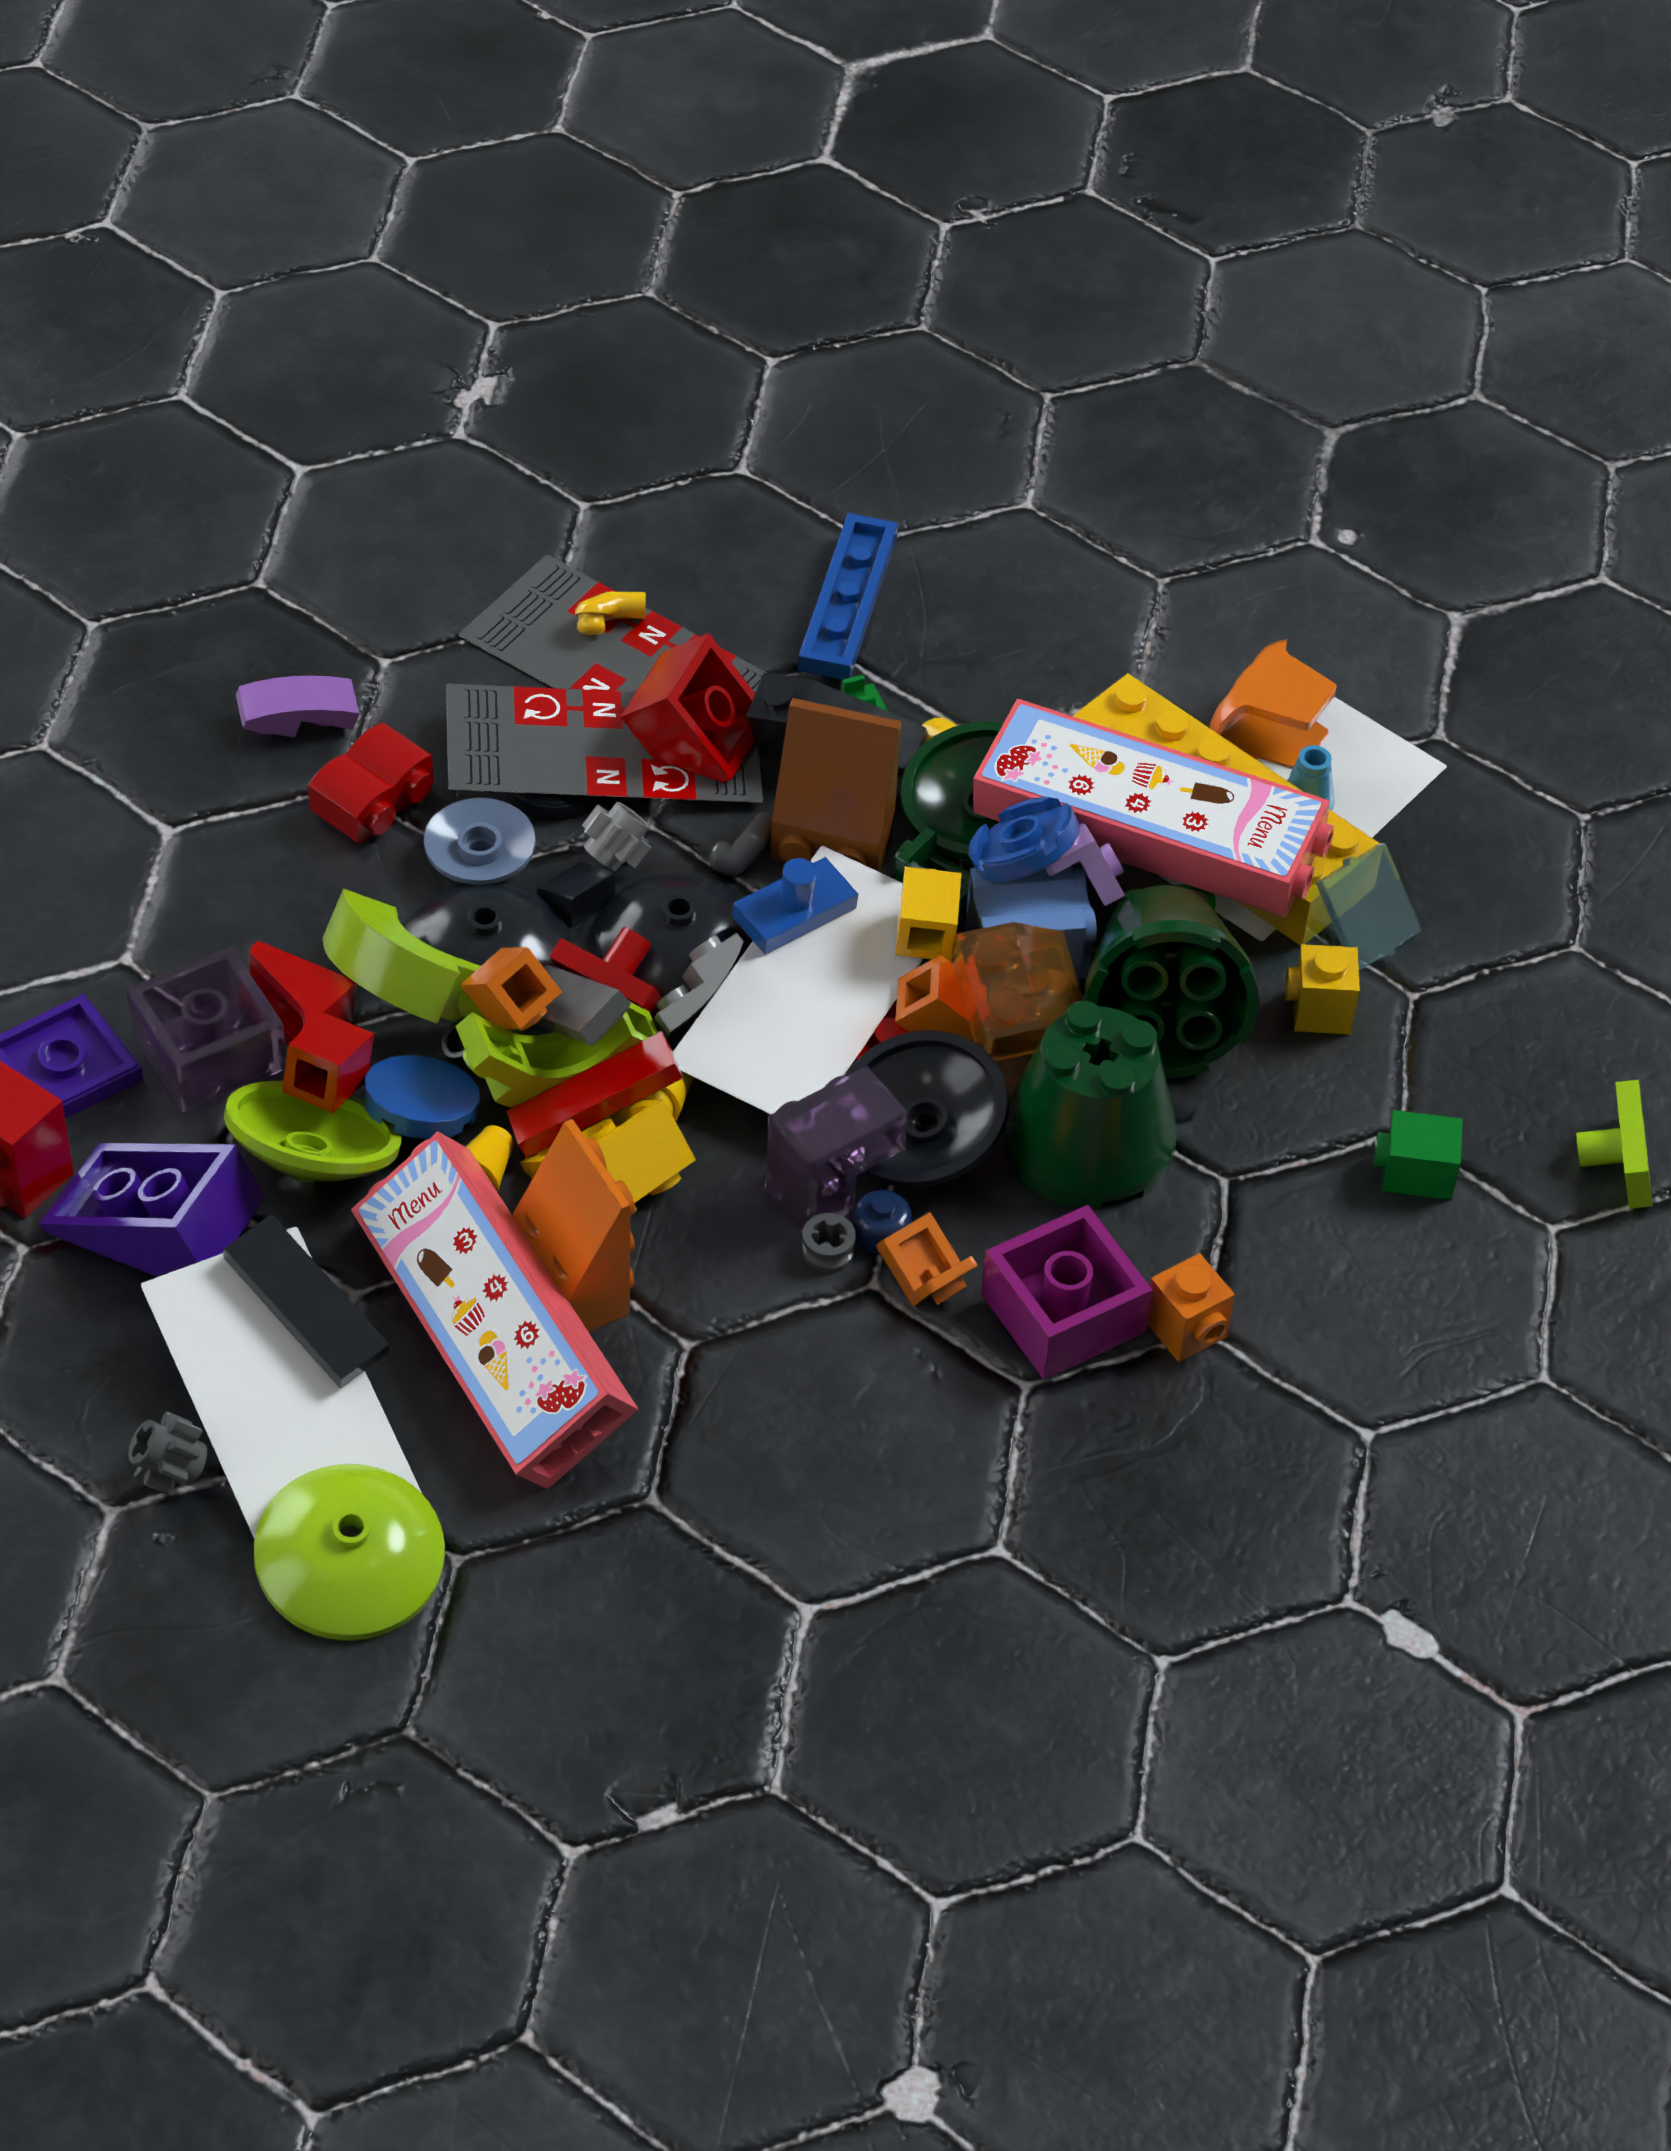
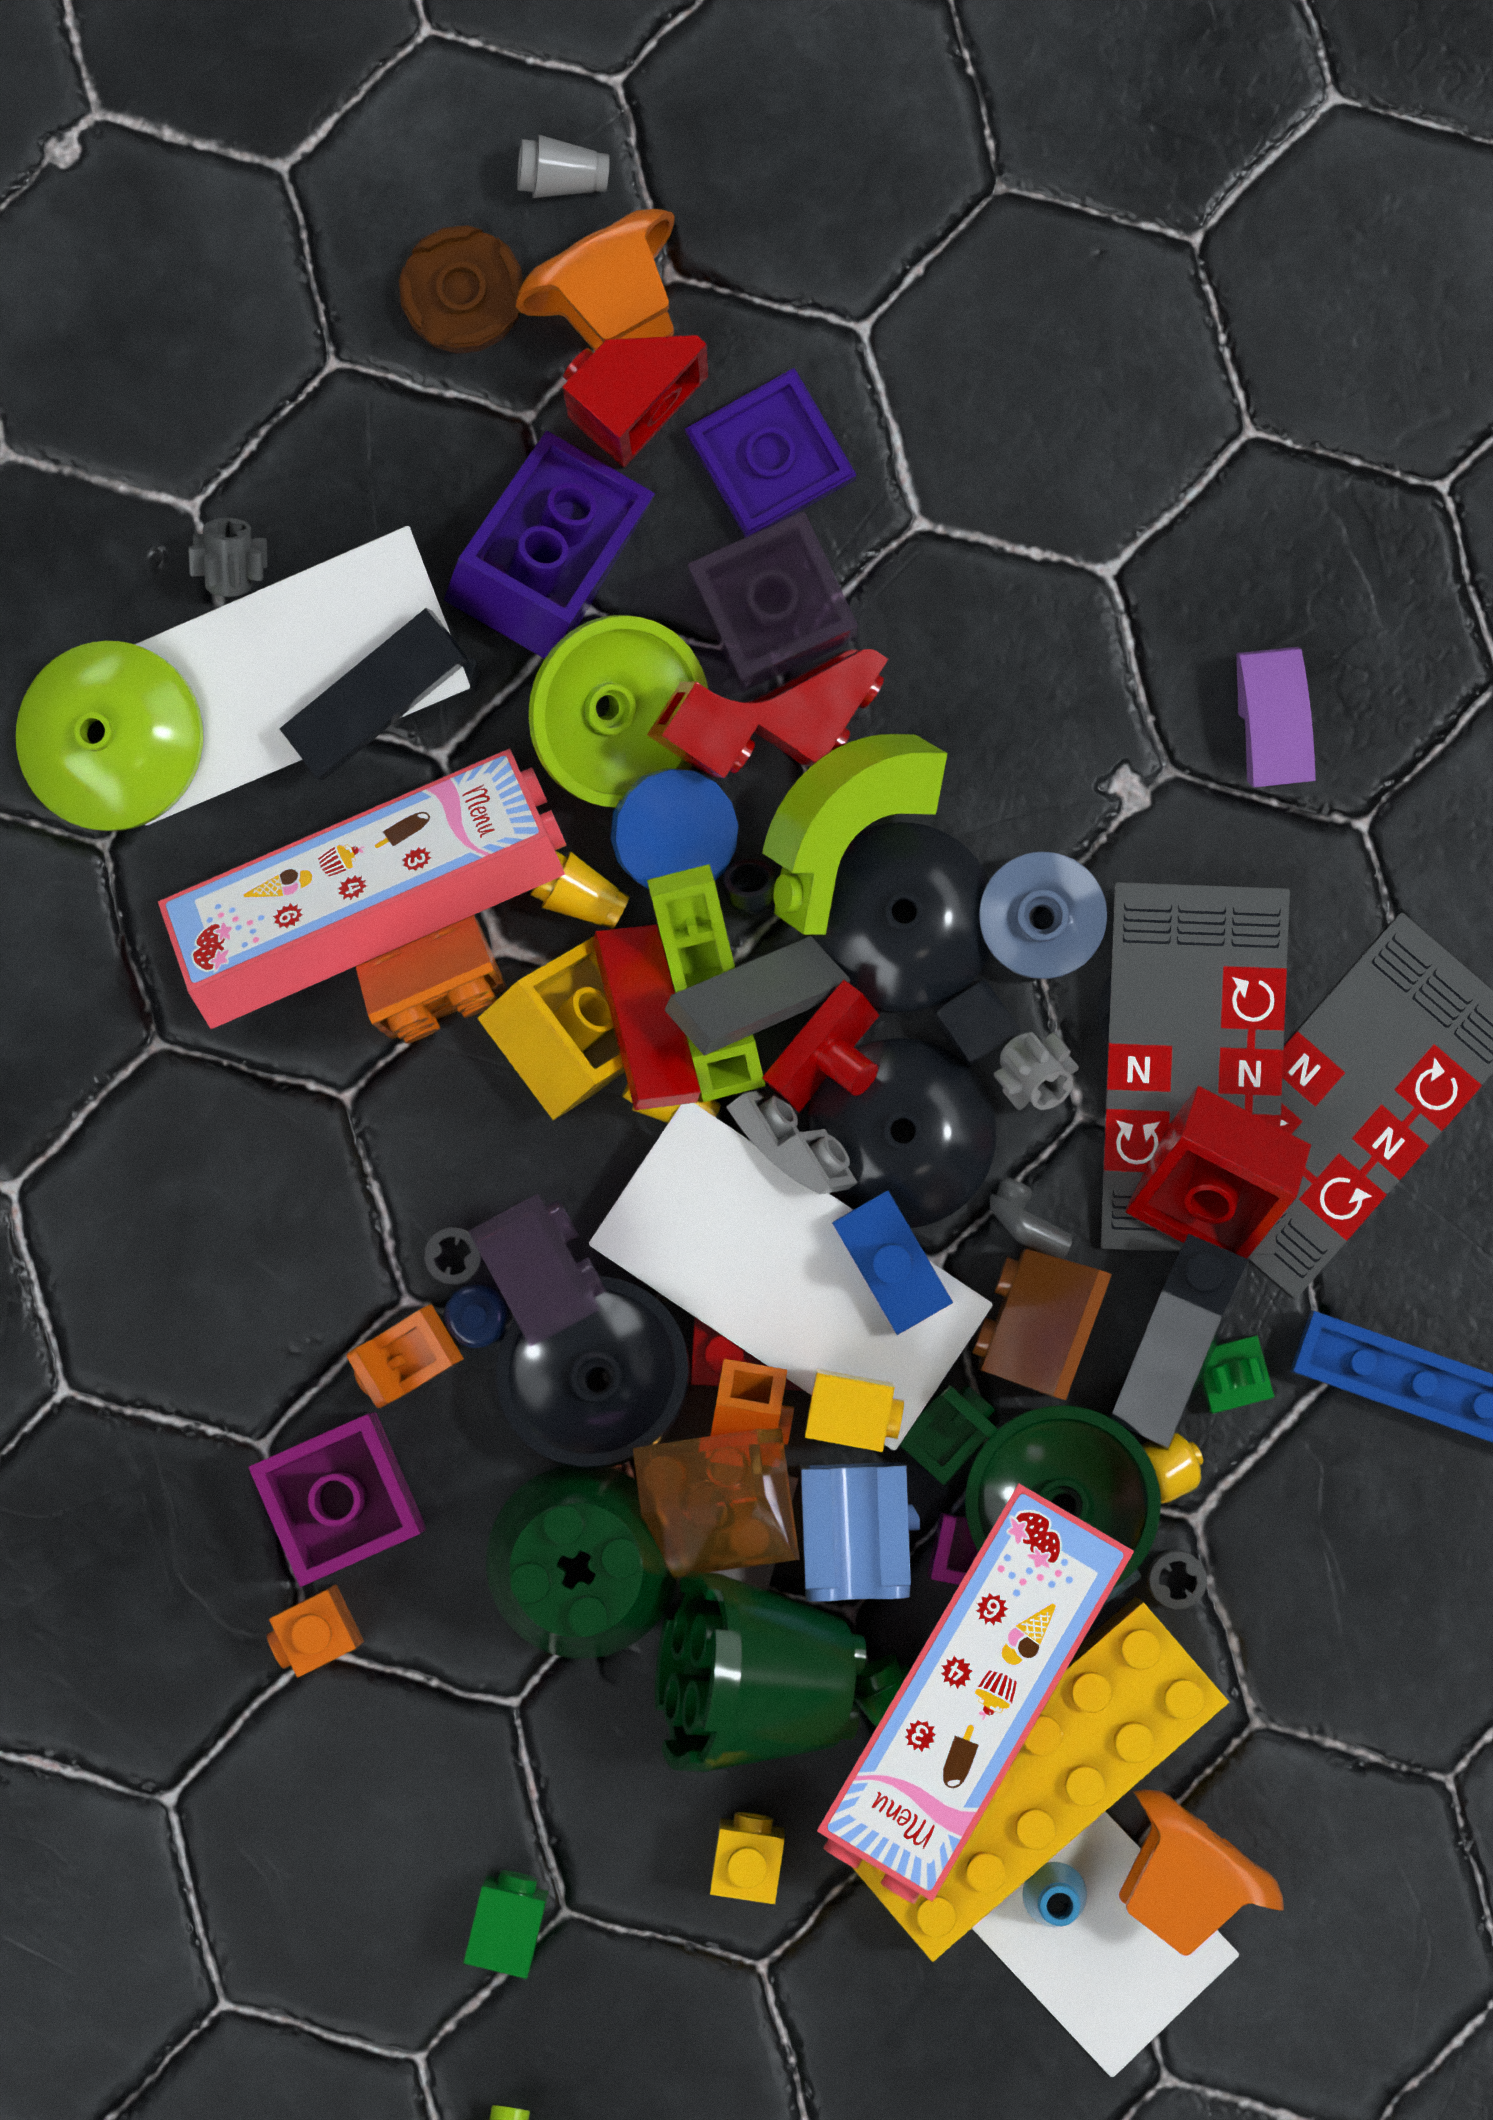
camera: 100 degrees right, 35 degrees up
(371, 783) = (1141, 798): red brick -> none
(512, 988) = (762, 928): orange brick -> none
(593, 611) = (1422, 1087): yellow arm -> none
(1025, 840) = (915, 1530): blue tile -> none
(1098, 863) = (905, 1597): lavender bracket -> none
(1369, 905) = (860, 1933): clear light blue piece -> none

